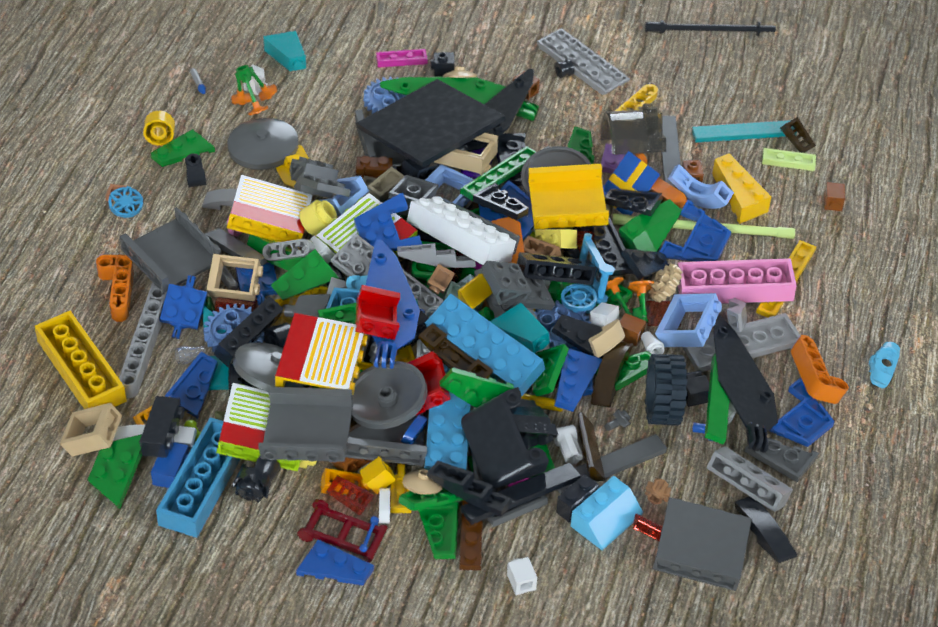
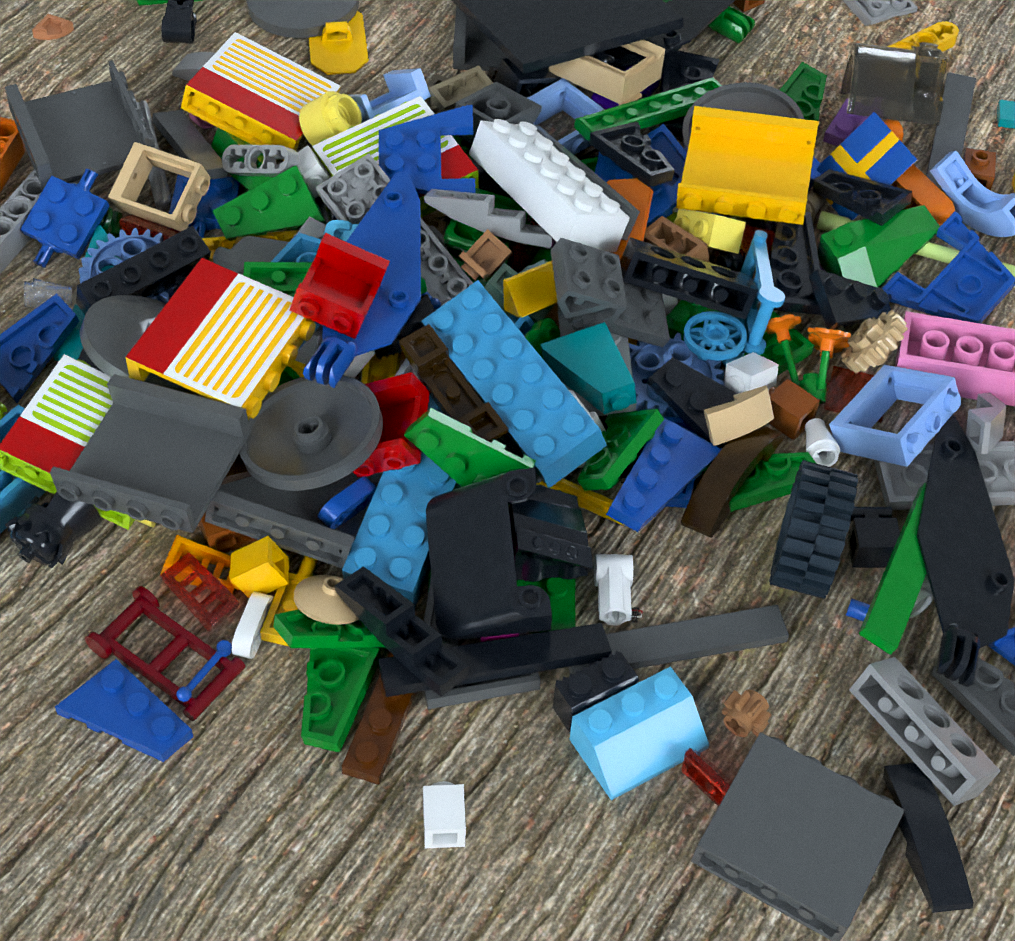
camera: 15 degrees right, 5 degrees up
(125, 202) = (57, 44): dark azure wheel -> none
(316, 178) = (355, 61): dark grey piece -> none
(372, 166) = (451, 60): reddish brown brick -> none
(590, 448) = (649, 606): dark brown slope -> none
(622, 418) = (725, 562): dark grey plate -> none

